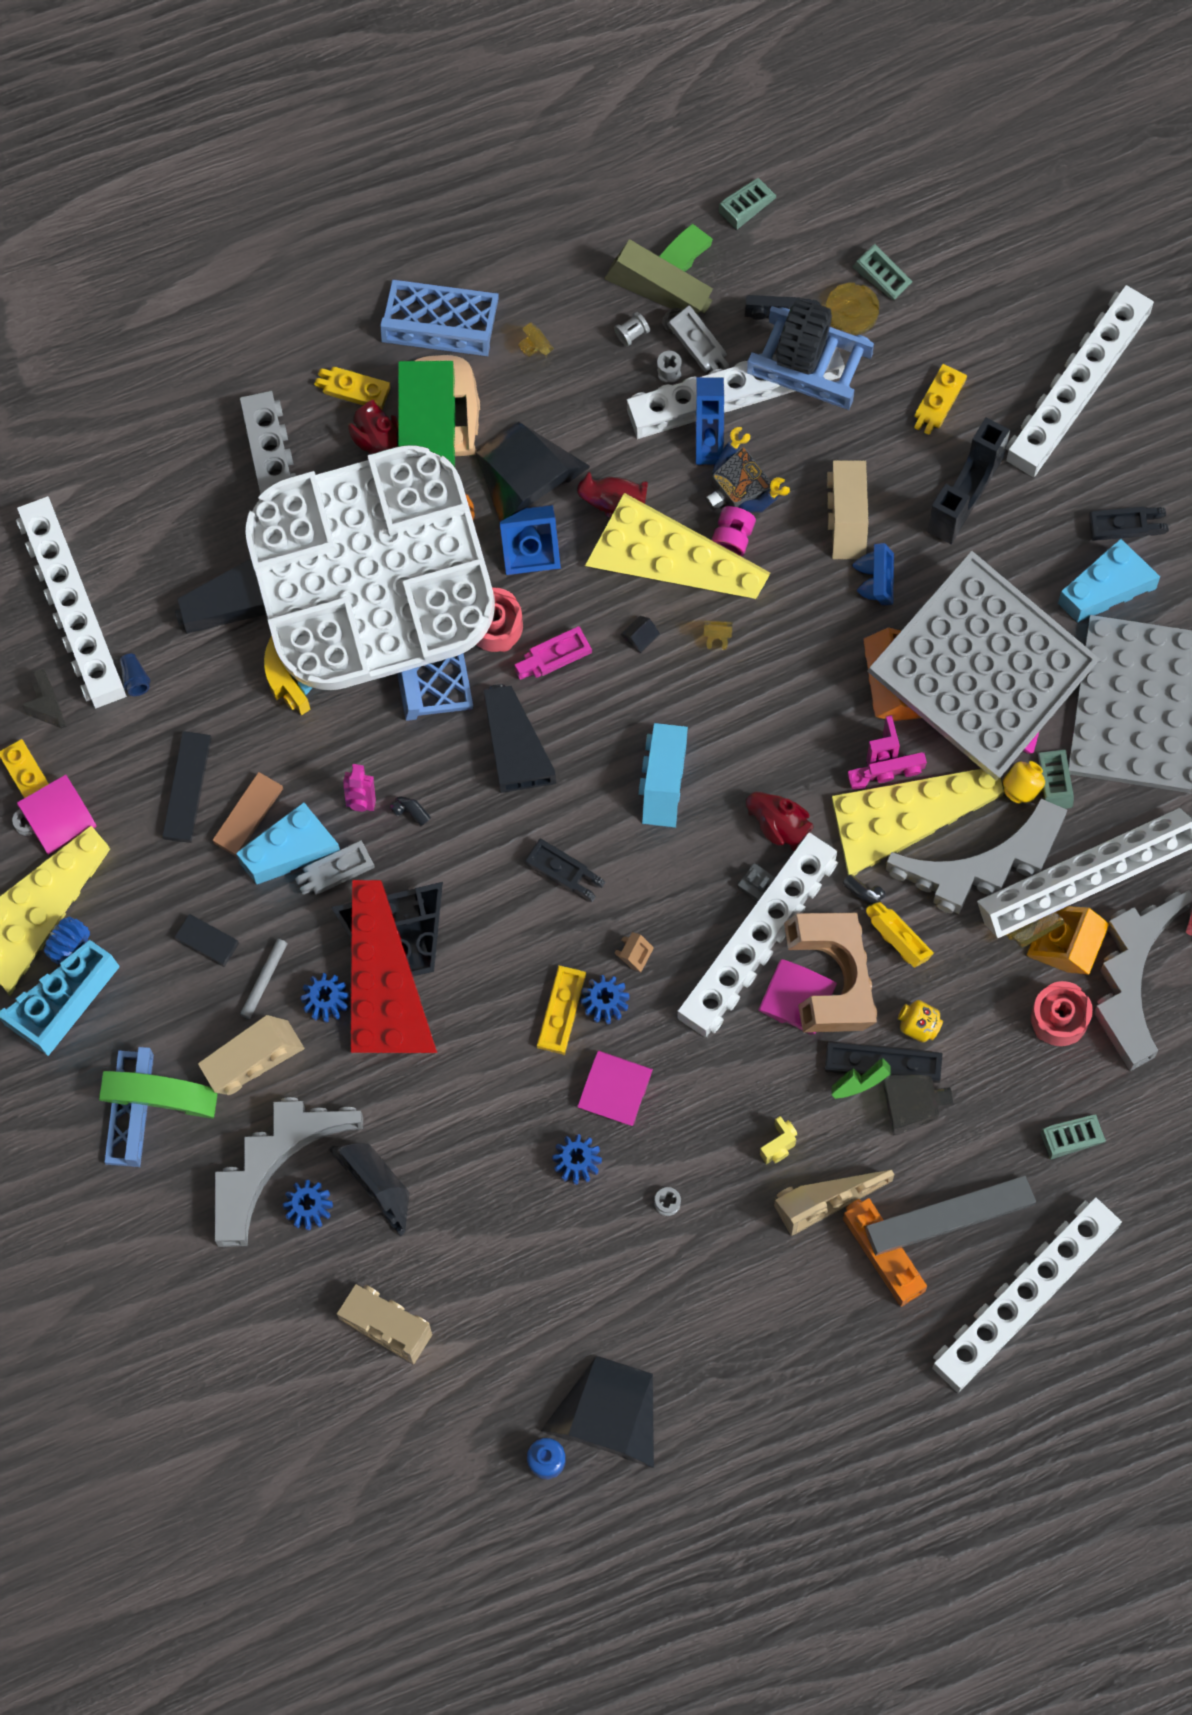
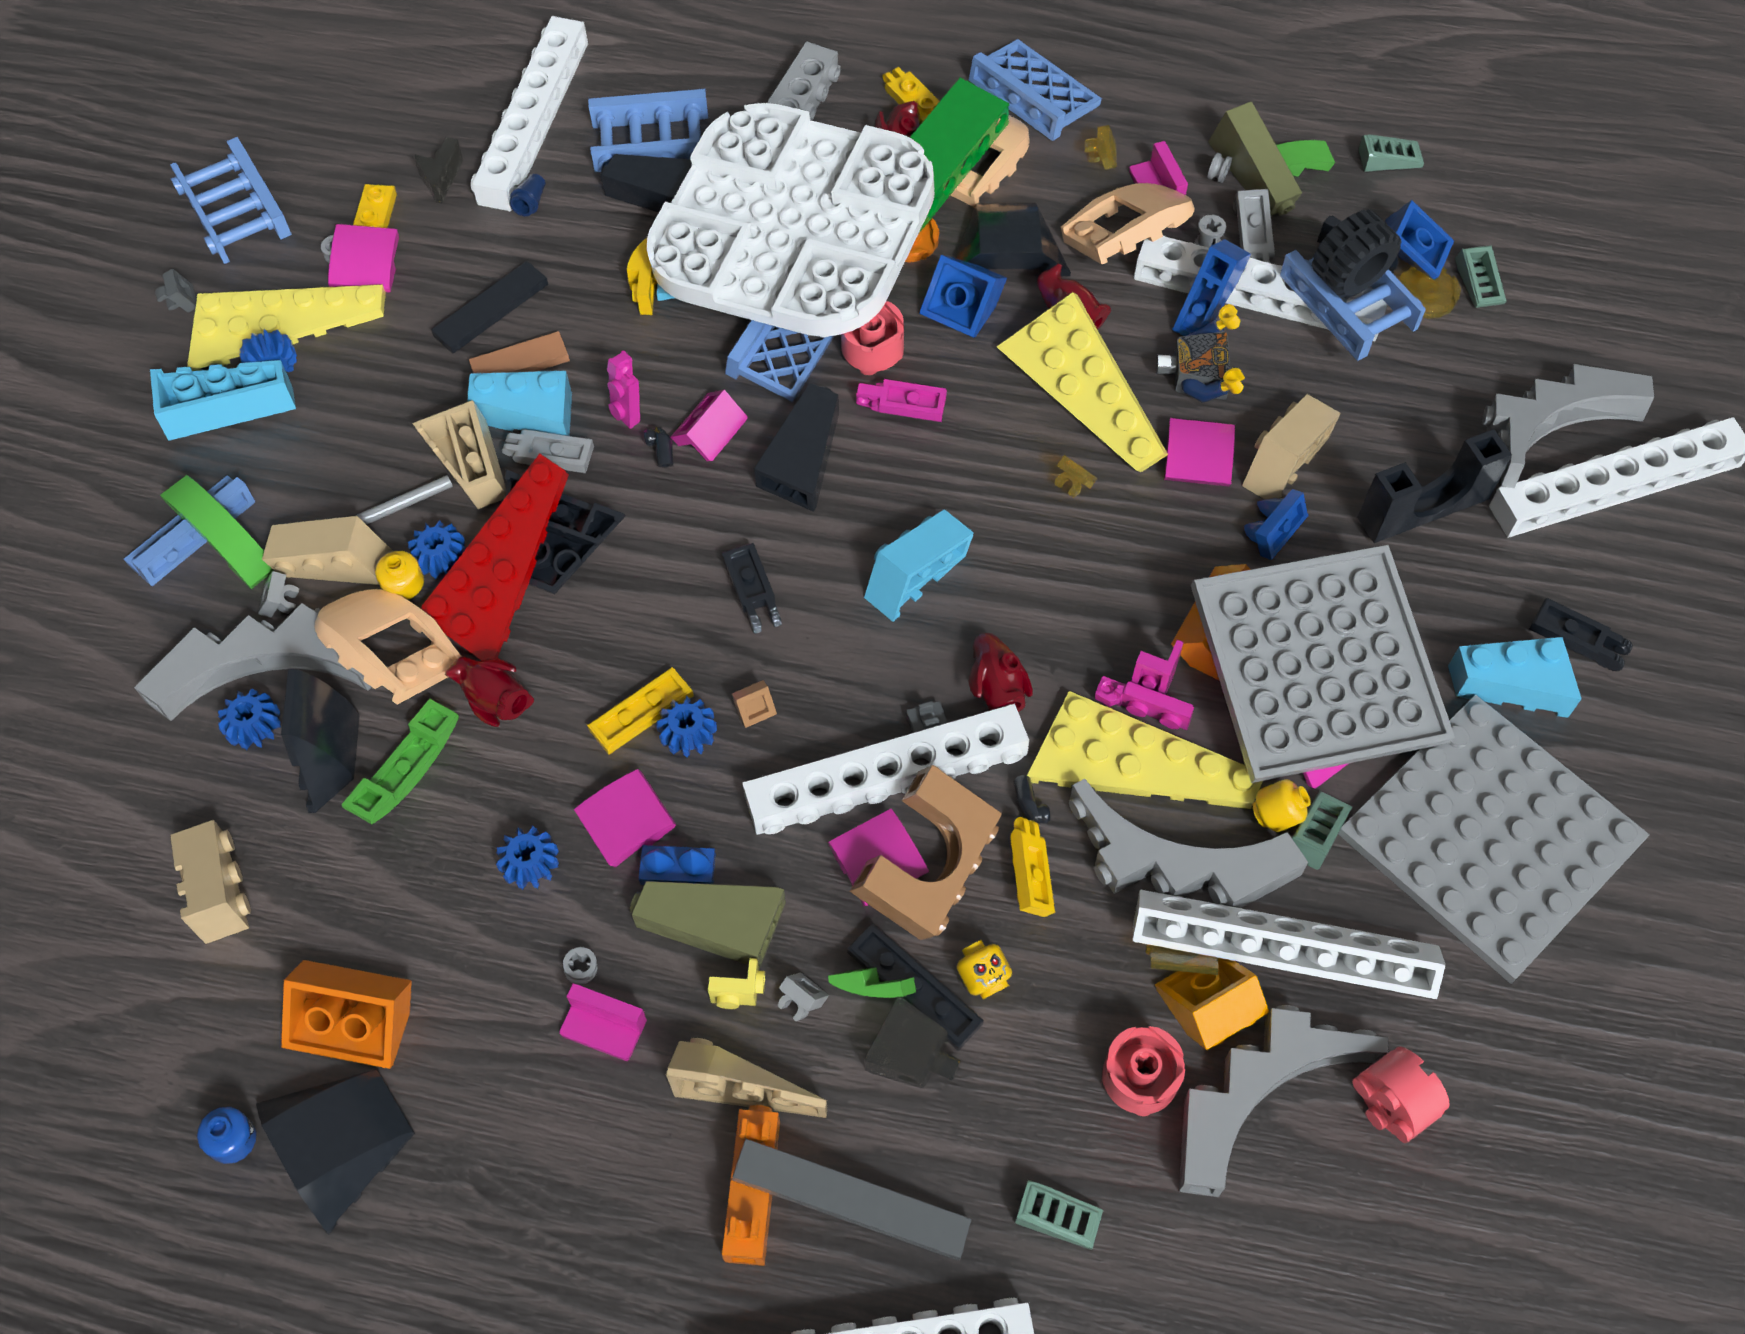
camera: 35 degrees right, 10 degrees down
(174, 531) = (647, 109): none -> medium blue fence
(206, 940) = (388, 437): black tile -> none
(240, 1110) = (274, 594): none -> light grey tile
(283, 914) = (466, 450): none -> tan wedge
(321, 1043) = (400, 574): none -> yellow head
(325, 1080) = (367, 612): none -> light nougat slope
(431, 769) = (711, 424): none -> panel
(439, 1157) = (405, 766): none -> bright green slope
(454, 1067) = (490, 689): none -> dark red animal
(550, 1337) = (344, 1013): none -> orange slope
(595, 340) = (1160, 170): none -> dark pink panel
(611, 369) = (1159, 209): none -> light nougat slope
(632, 329) = (1202, 187): light grey bush -> none
(633, 301) = (1219, 167): none -> light grey bush
(641, 633) = (1001, 434): black slope -> none
(674, 1095) = (677, 864): none -> blue tile
(712, 1225) = (602, 1022): none -> dark pink panel
(729, 1110) = (711, 917): none -> olive slope
(733, 529) = (1163, 396): dark pink wheel -> none
(788, 553) = (1200, 452): none -> dark pink slope
(820, 275) = (1423, 241): none -> blue slope
(821, 1116) = (803, 992): none -> light grey tile
(939, 398) = (1455, 412): yellow hinge -> none
(1015, 331) = (1550, 405): none -> light grey arch

